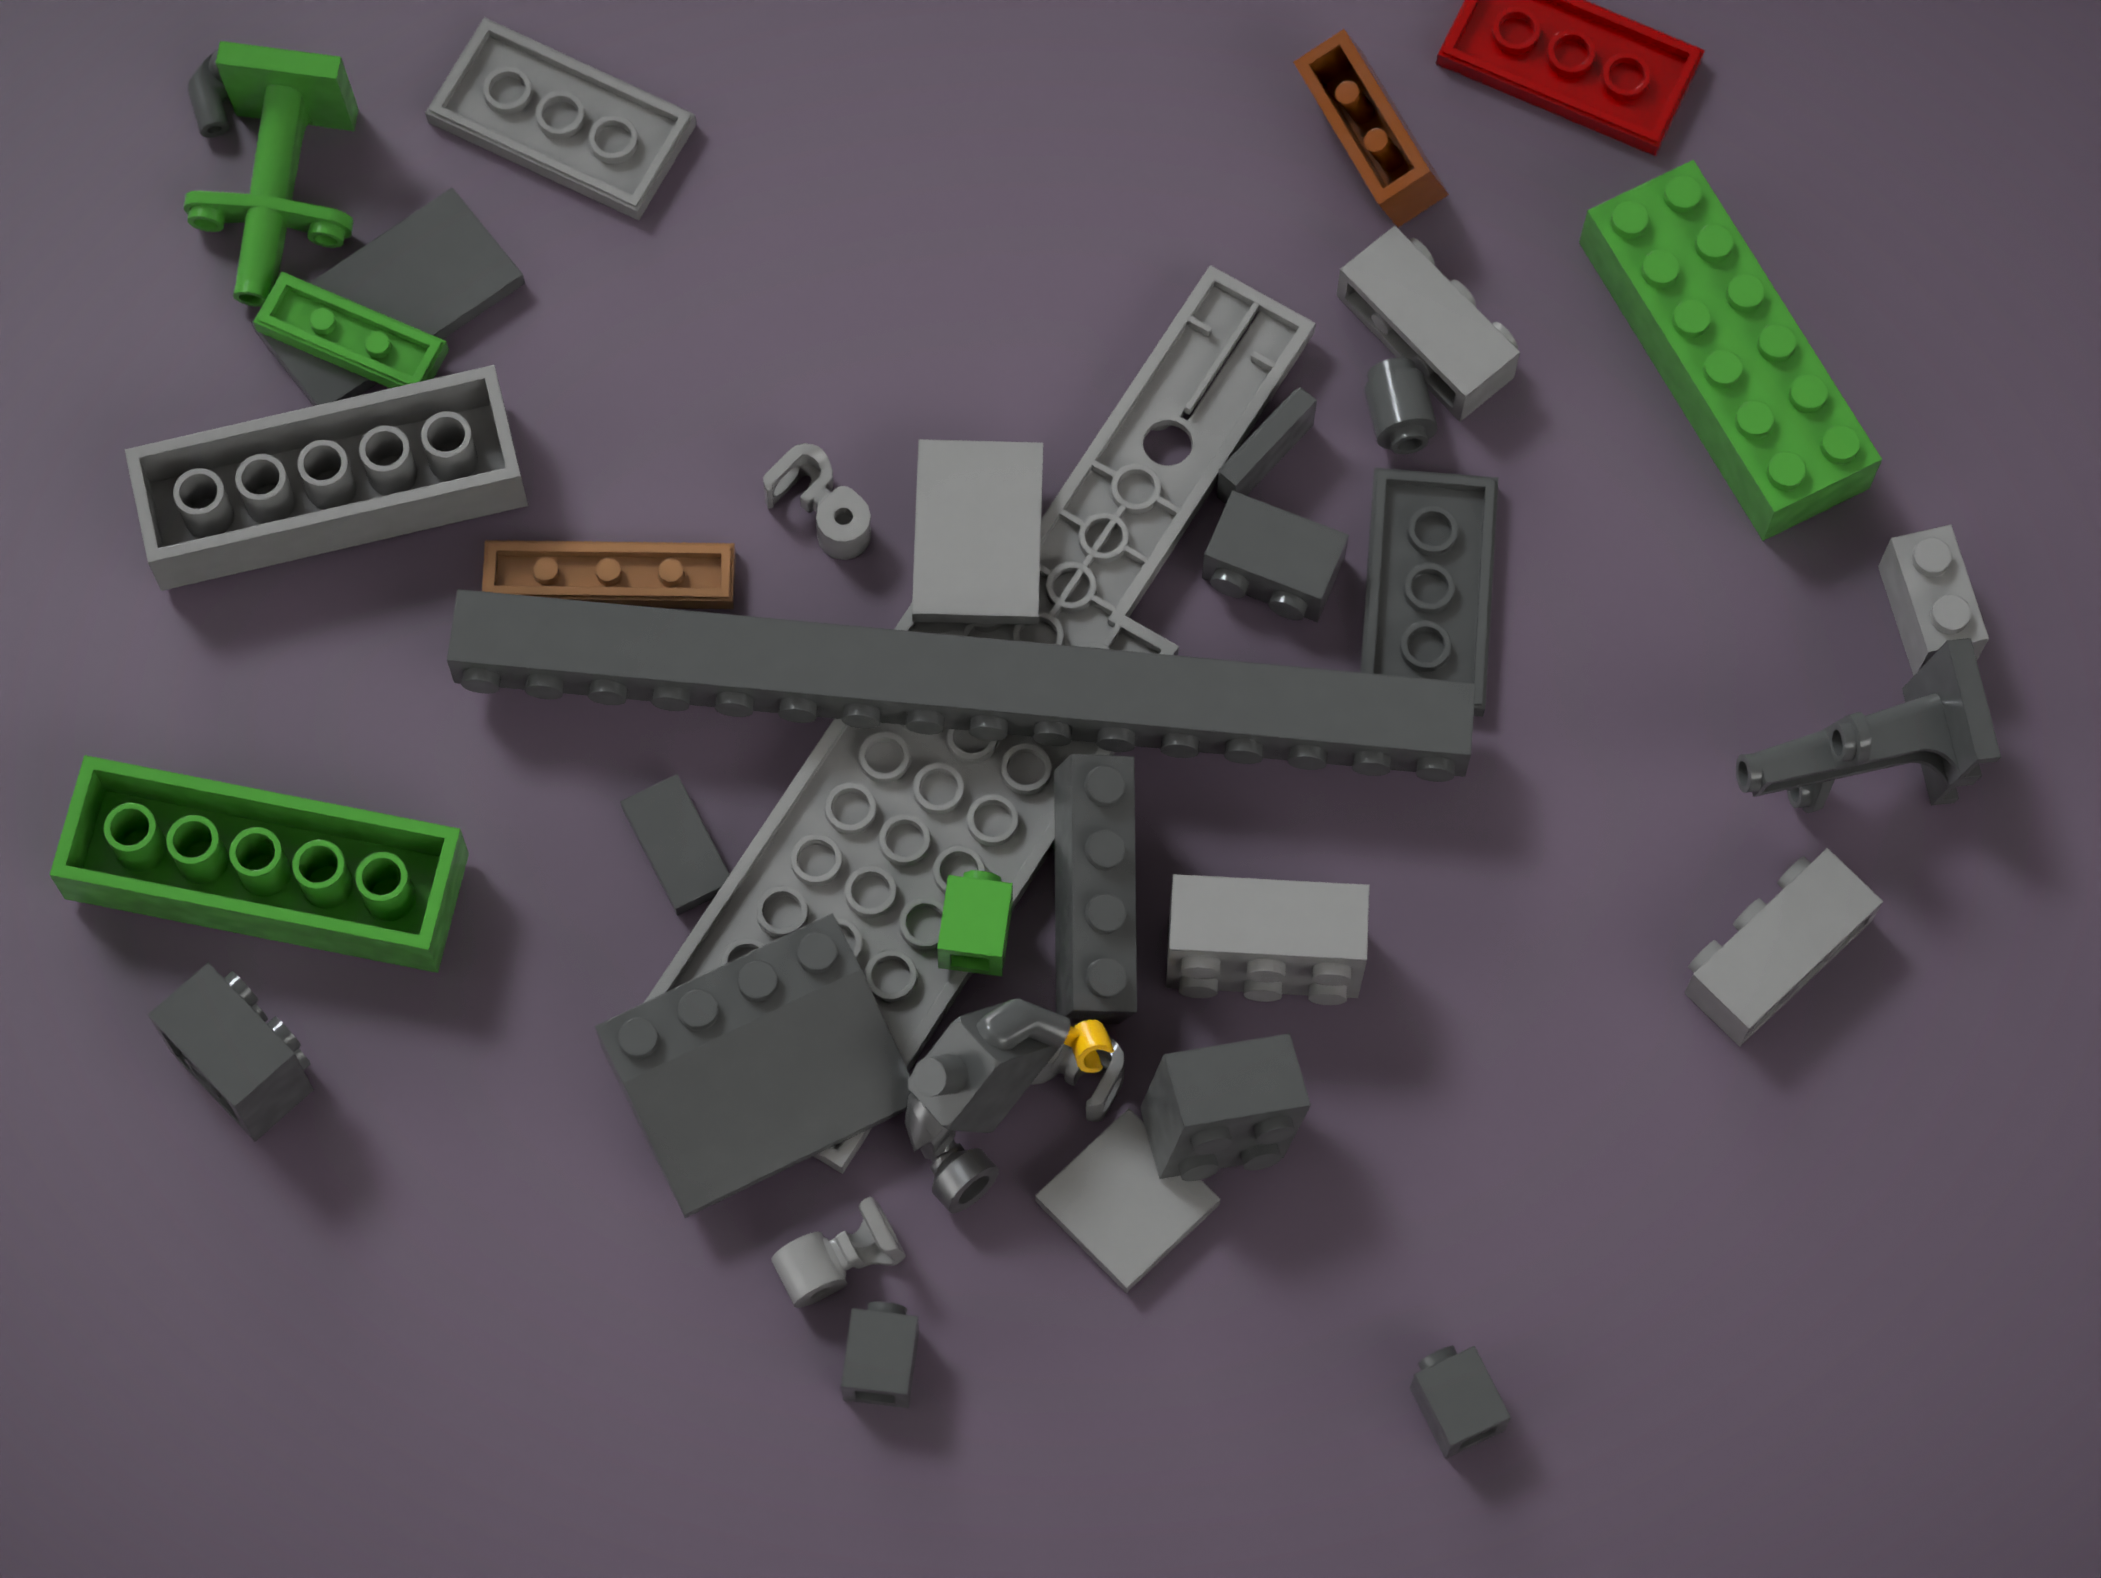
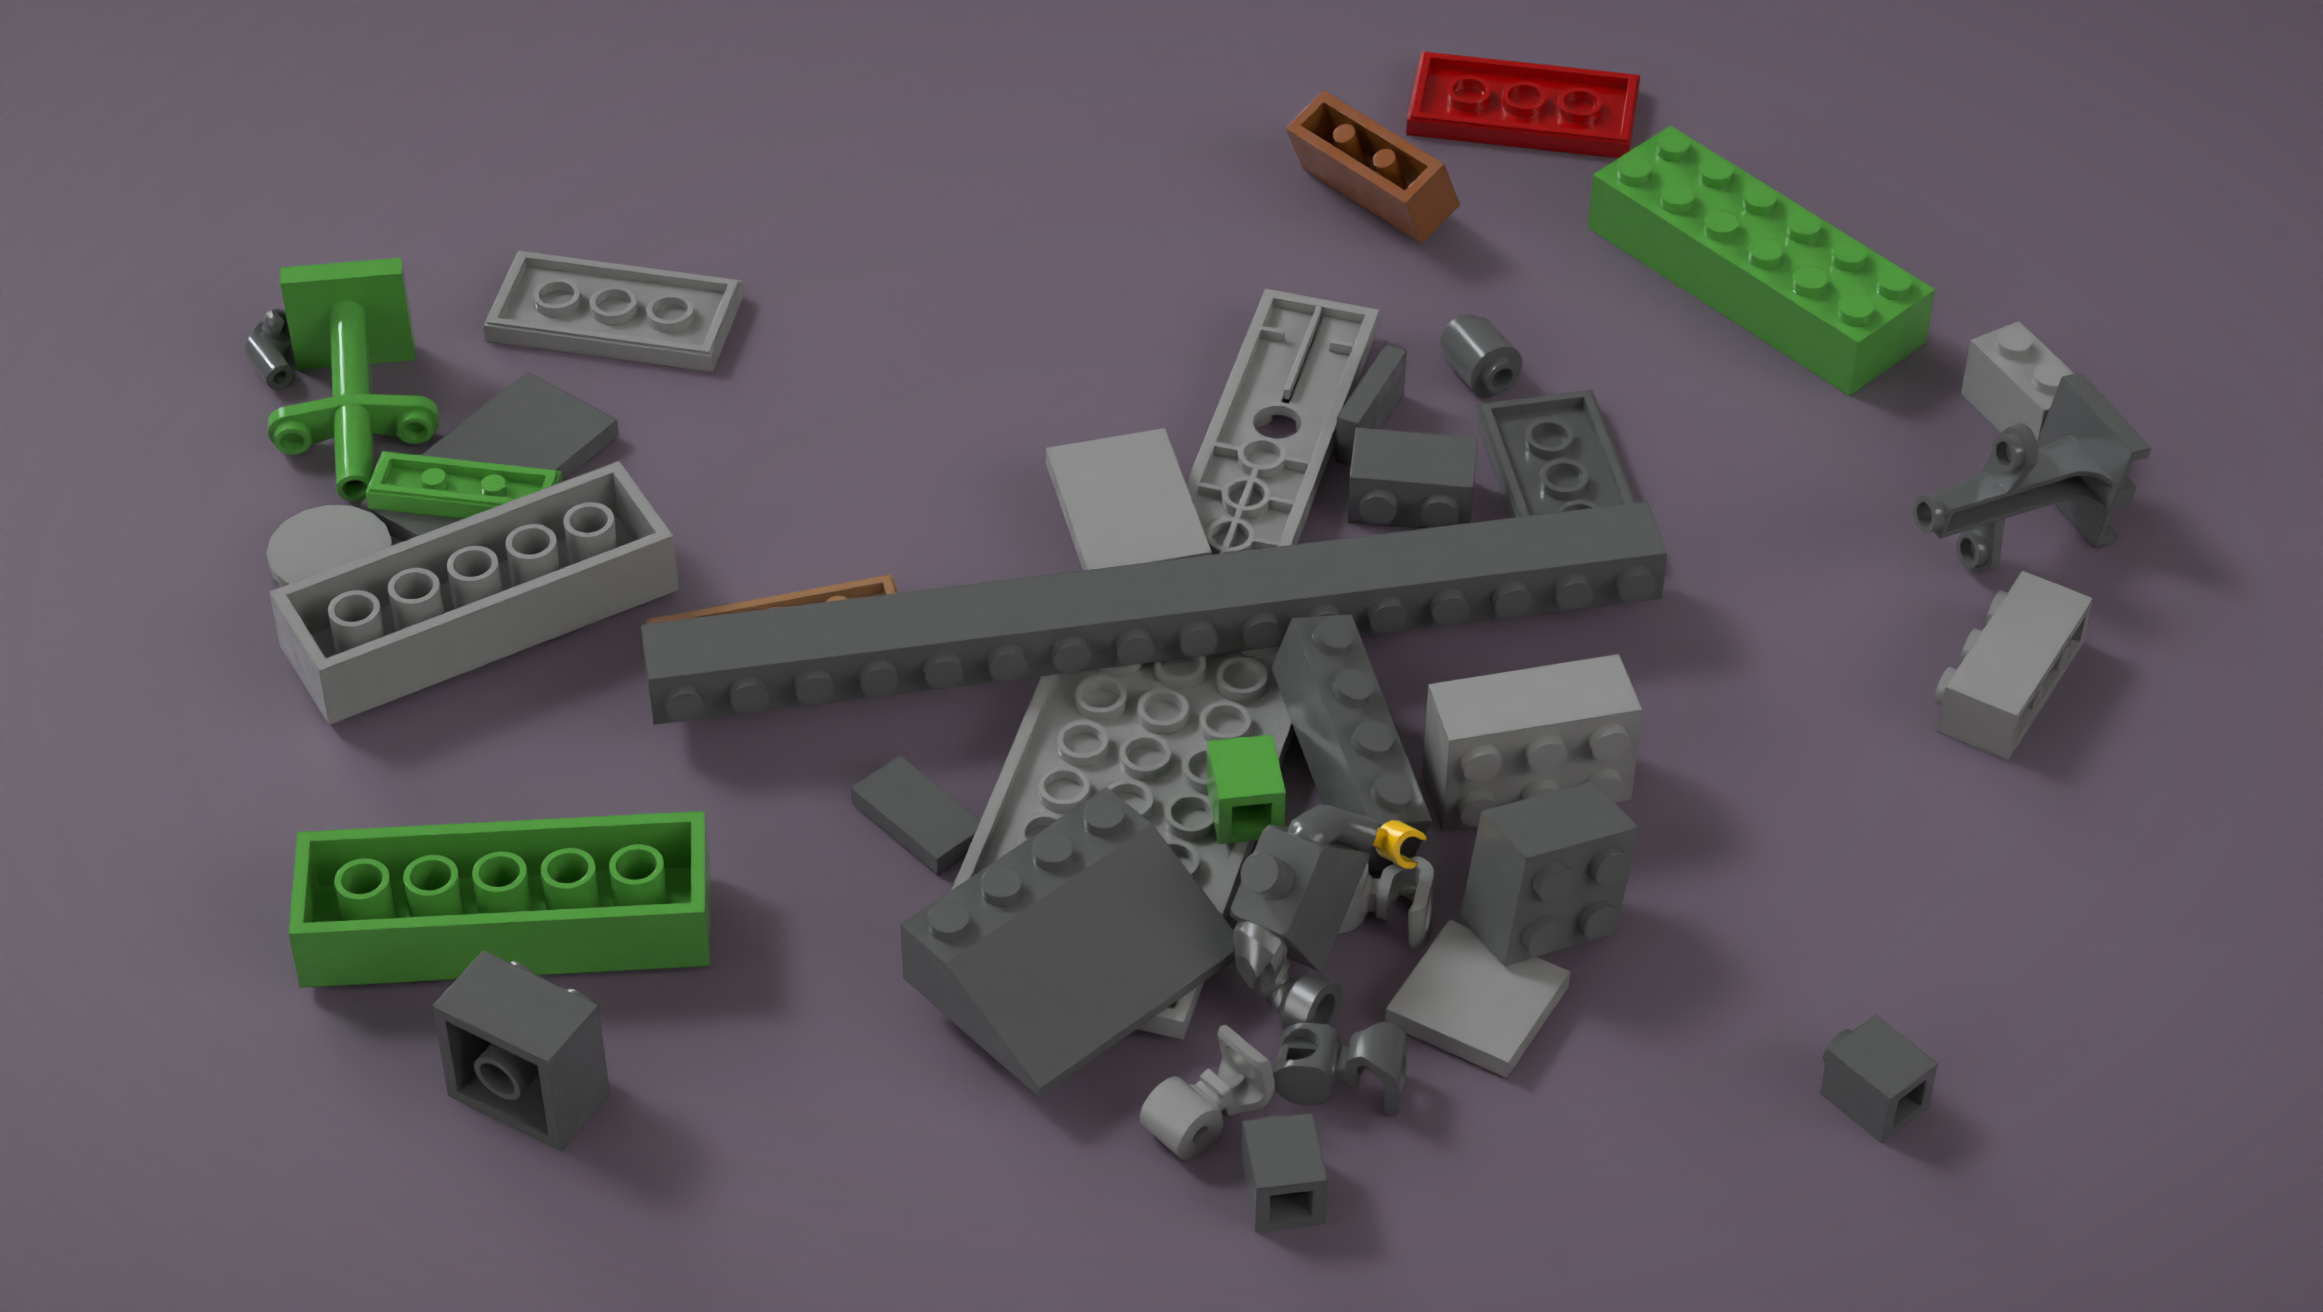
camera: 15 degrees left, 25 degrees down
(210, 374) = (322, 540): none -> light grey tile
(841, 514) = (988, 530): light grey leg -> none
(949, 1241) = (1314, 1061): none -> dark grey leg
(1429, 321) = (1451, 276): light grey brick -> none

